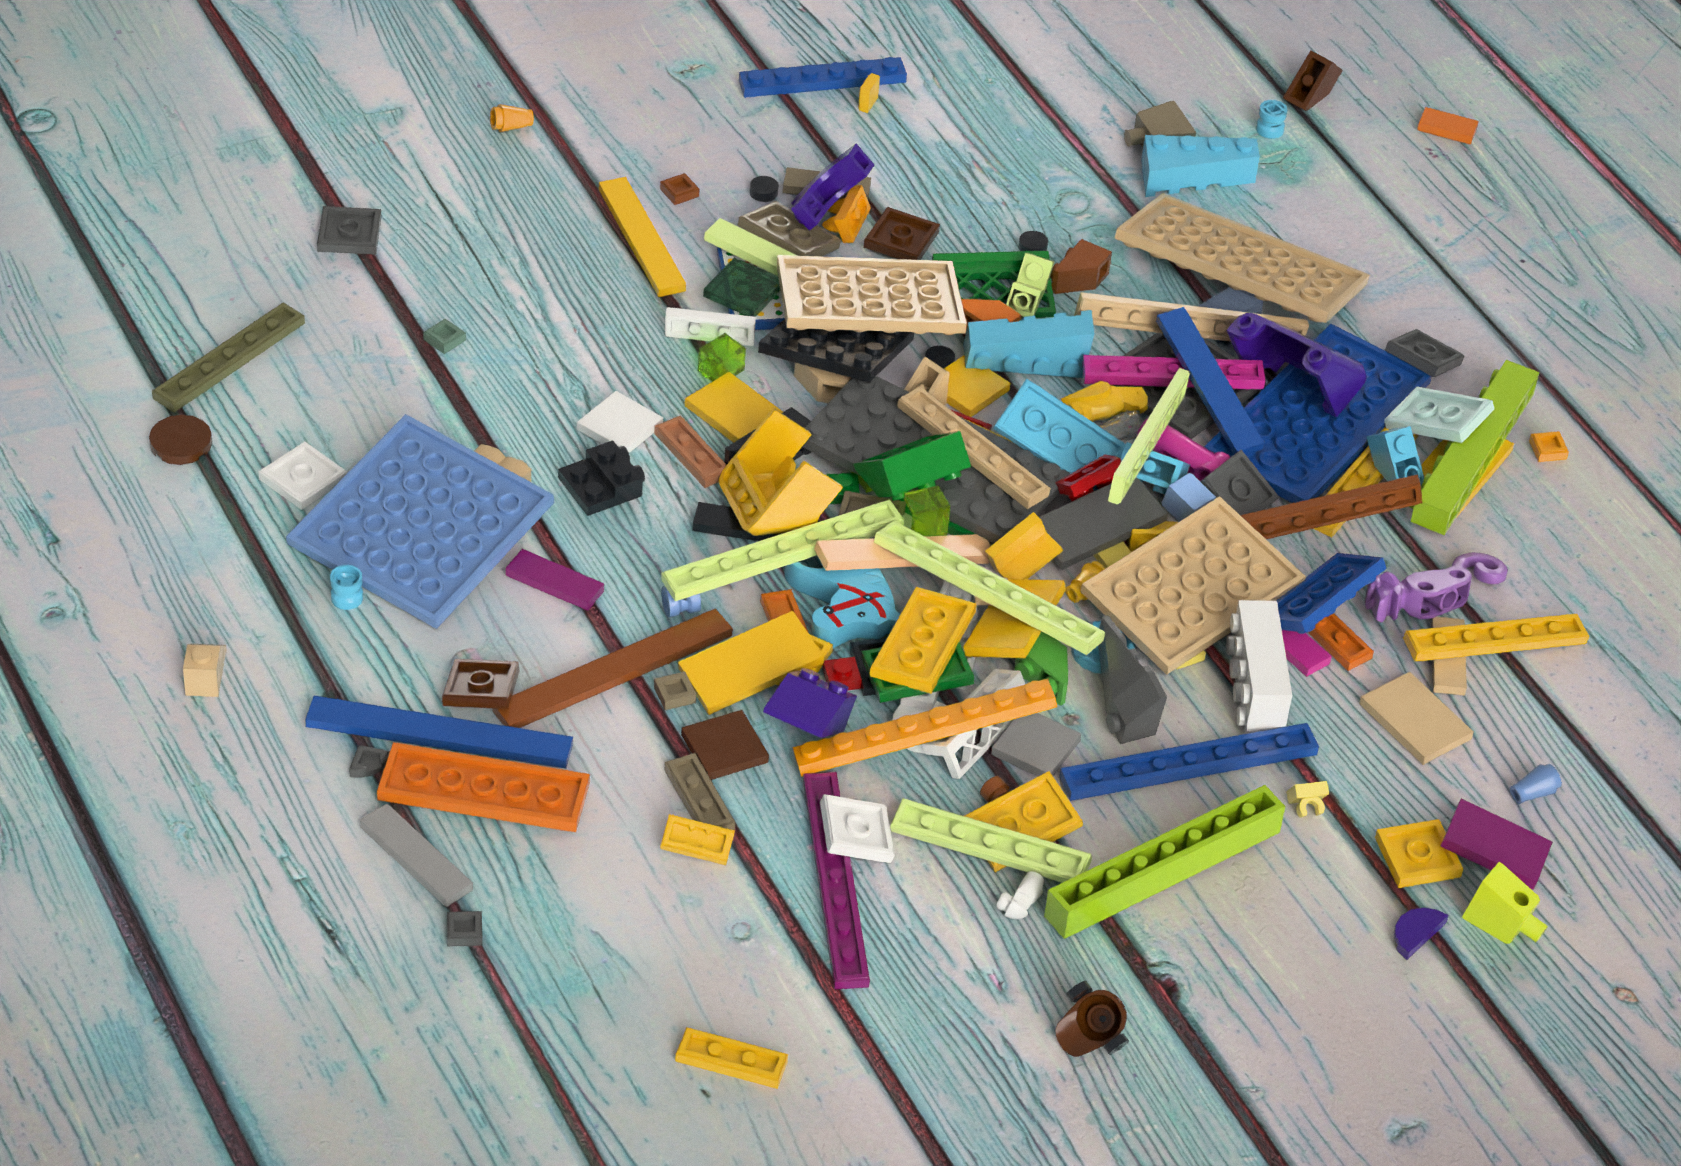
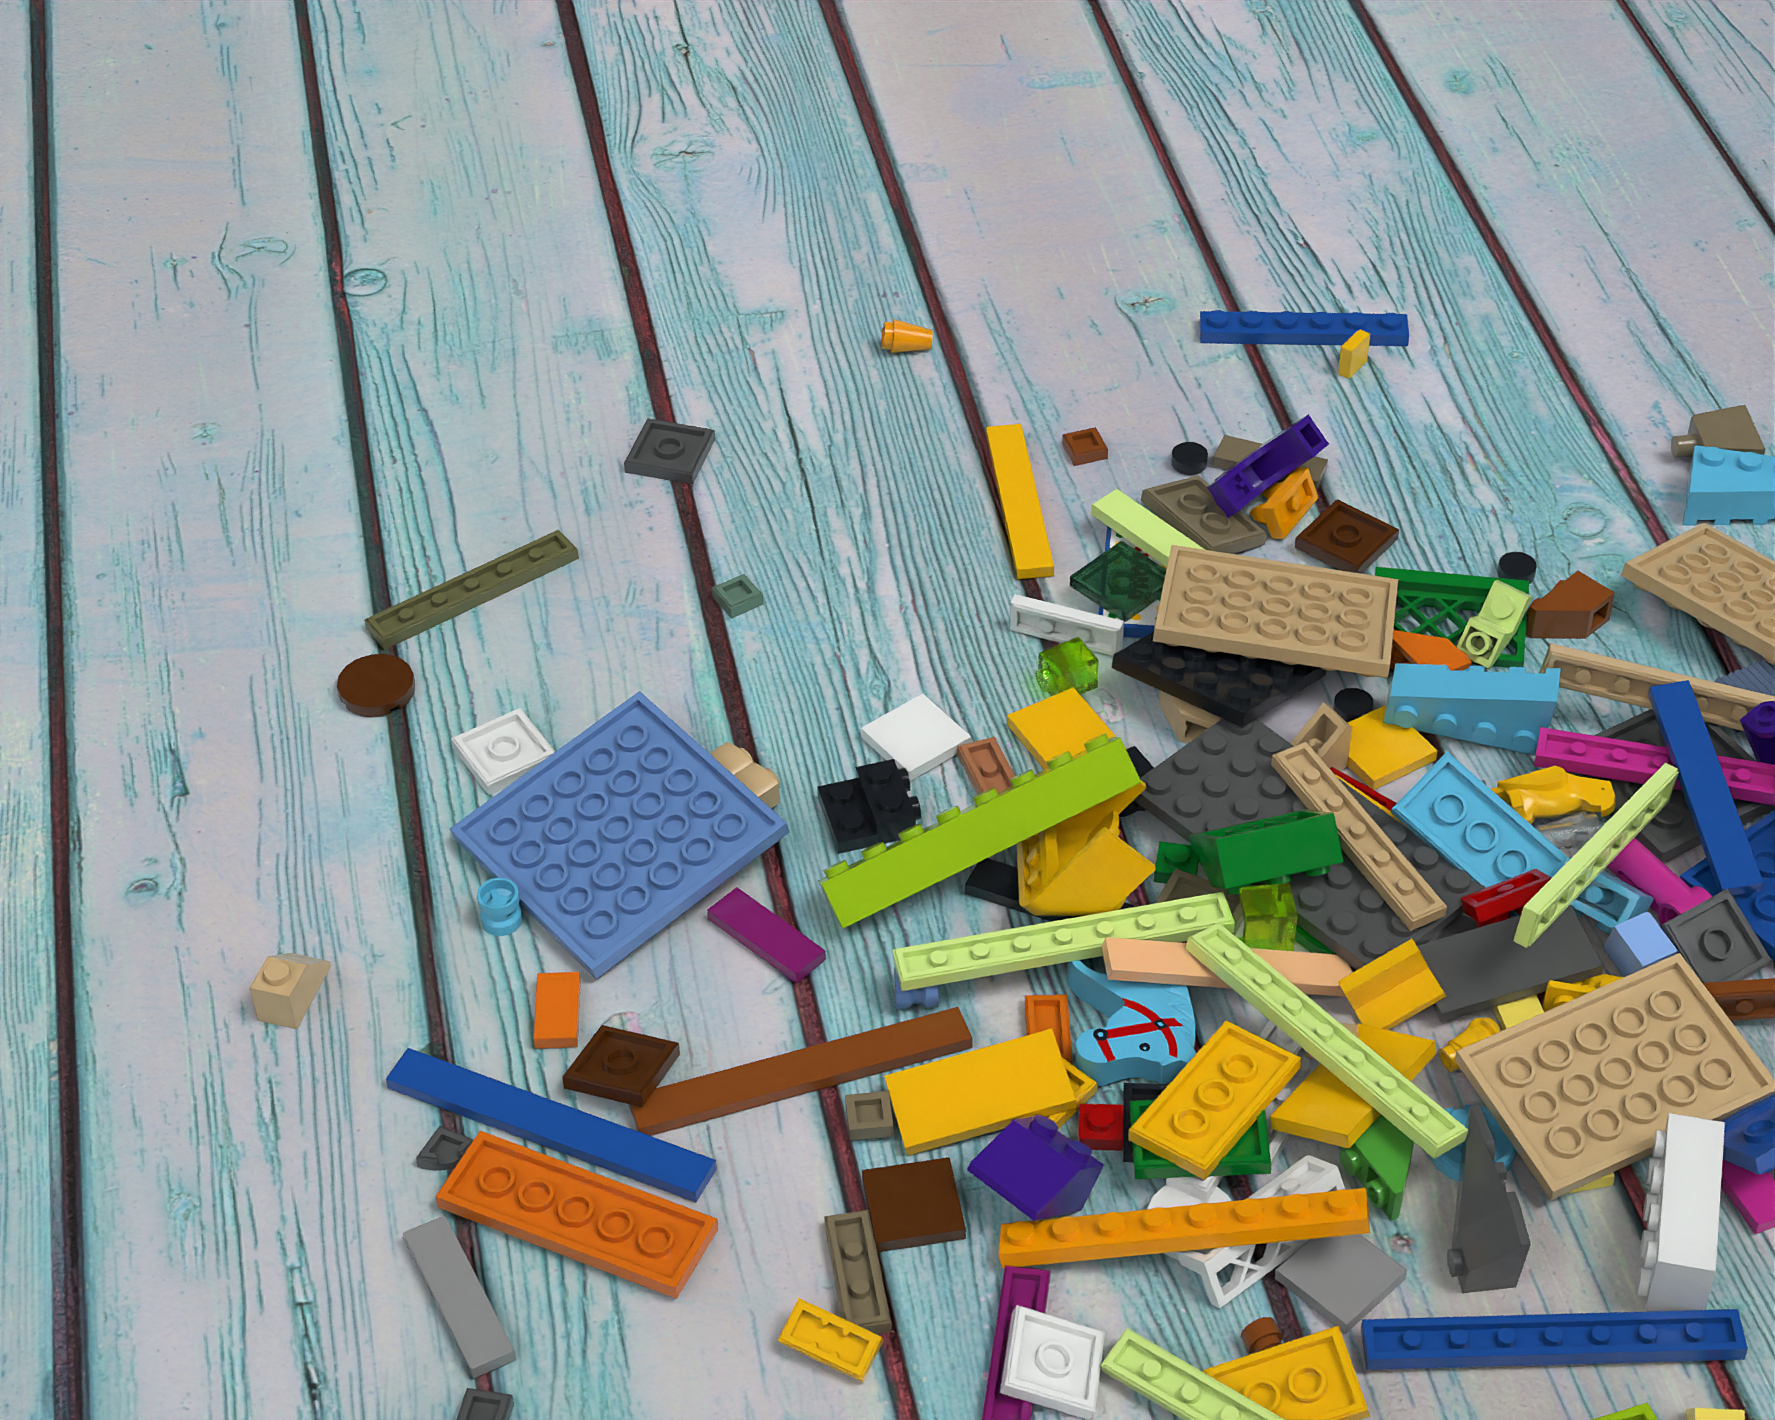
camera: 20 degrees right, 0 degrees up
(416, 654) = (557, 1010): none -> orange tile
(698, 481) = (978, 831): none -> lime brick

